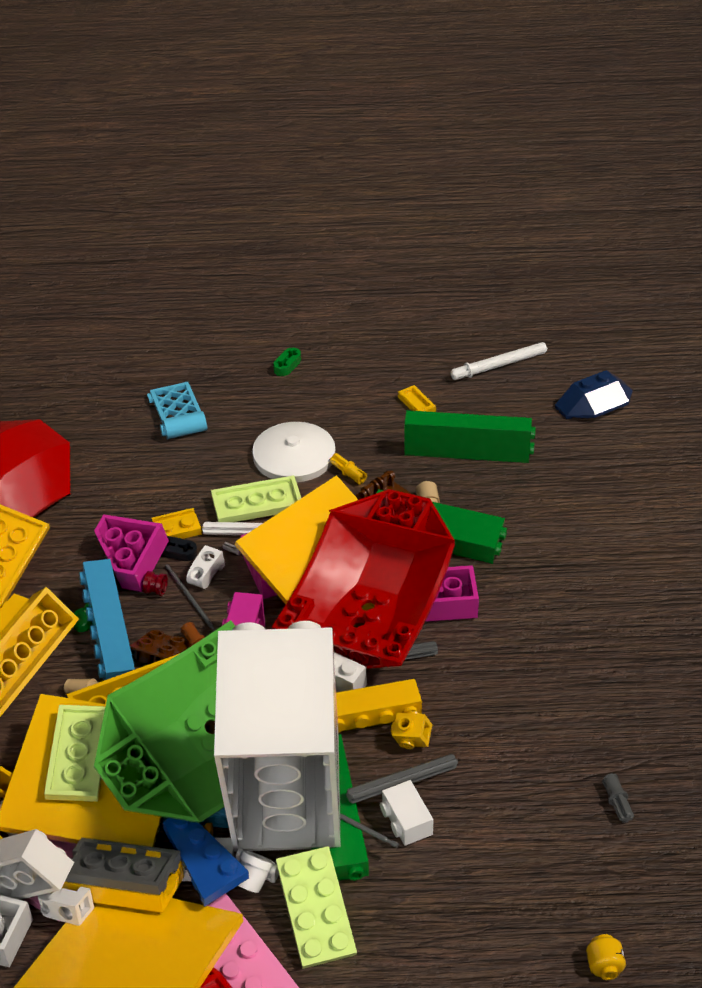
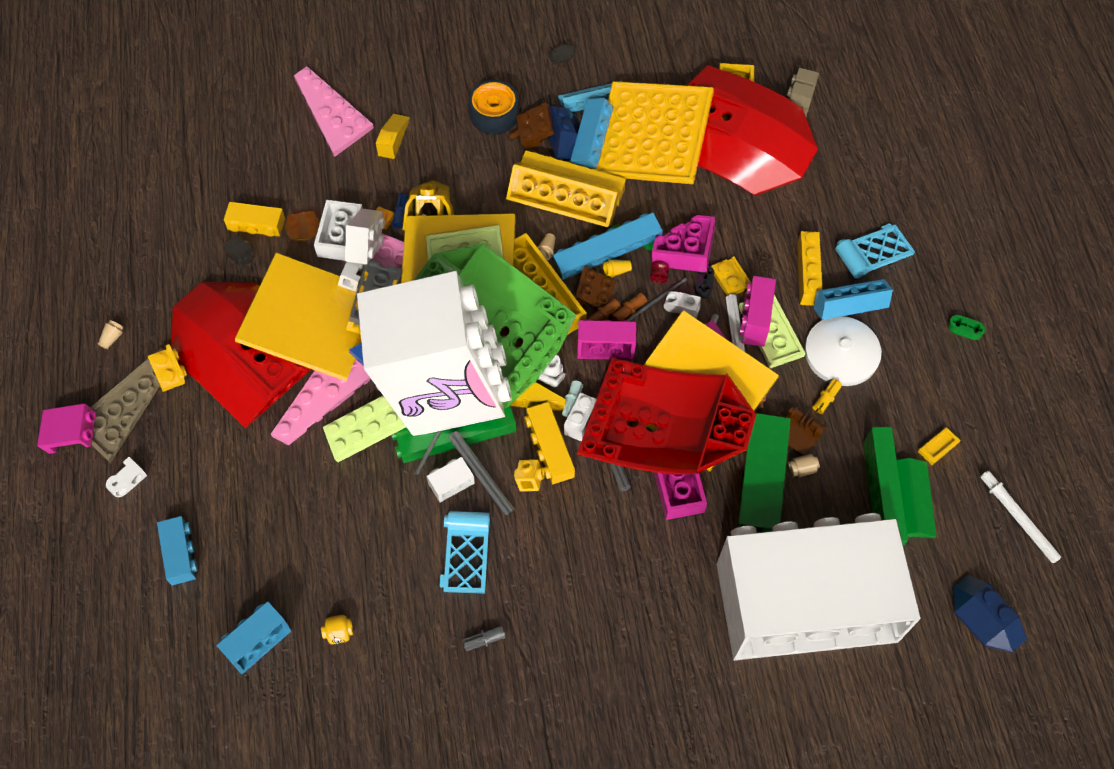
camera: 80 degrees right, 20 degrees up
(135, 623) = (616, 267): none -> yellow cone
(188, 457) = (809, 267): none -> yellow brick
(196, 616) = (629, 307): none -> dark orange pin
(240, 427) = (853, 299): none -> dark azure brick
(242, 492) = (757, 311): none -> dark pink brick
(469, 807) = (469, 525): none -> medium azure piece
(580, 492) = (815, 587): none -> white brick

